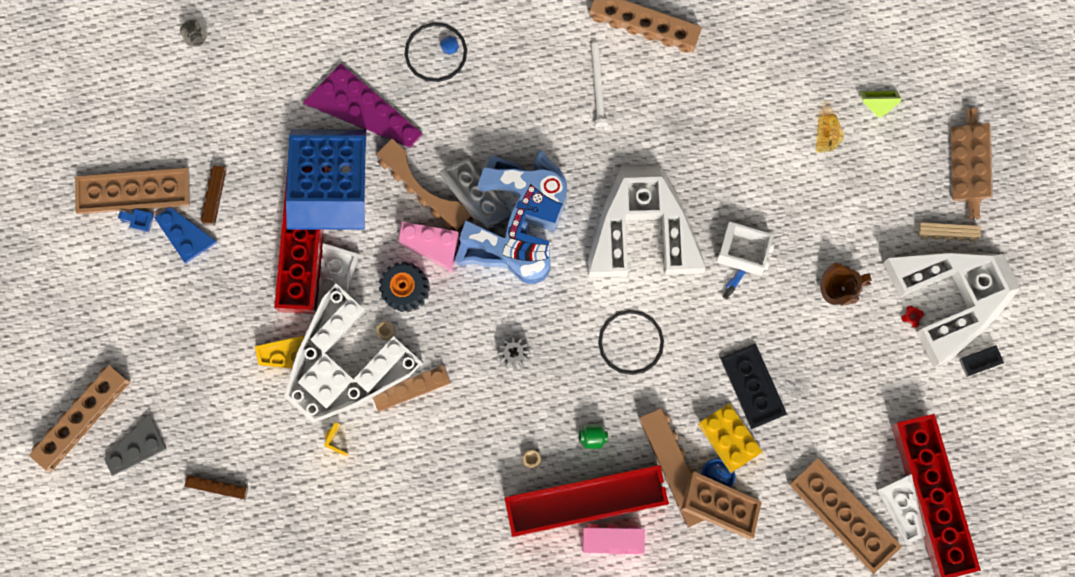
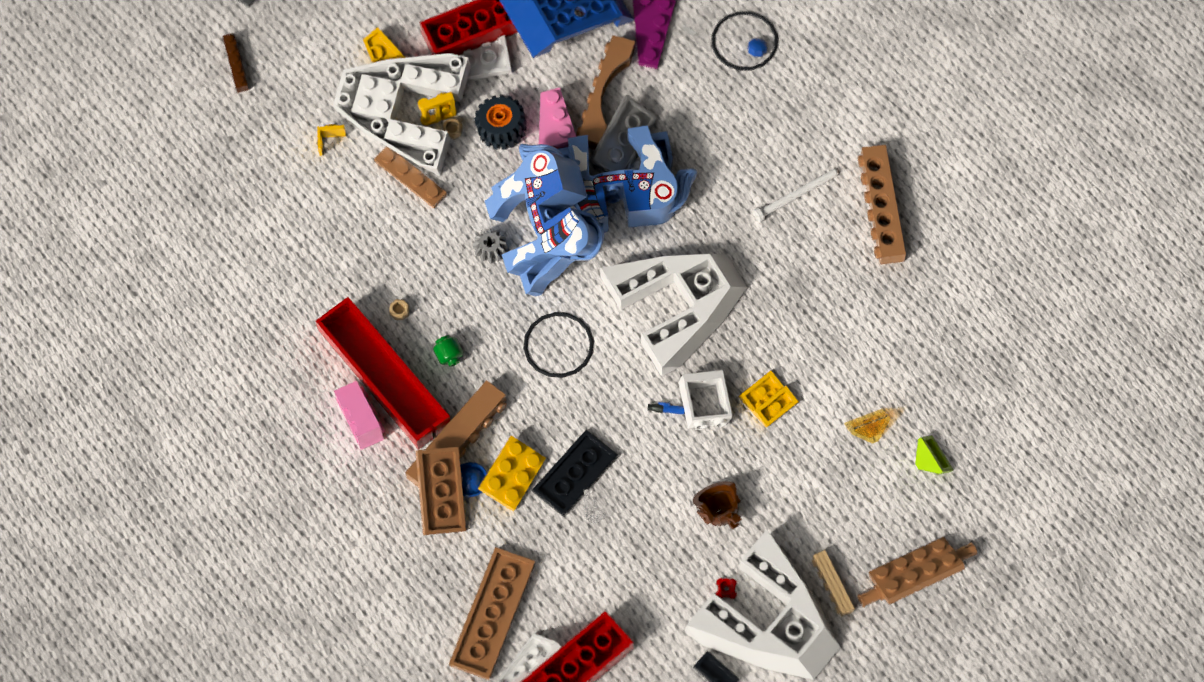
camera: 60 degrees right, 10 degrees down
(364, 326) = (443, 107): none -> yellow plate
(498, 274) = (564, 234): none -> medium blue animal
(766, 199) = (768, 398): none -> yellow slope

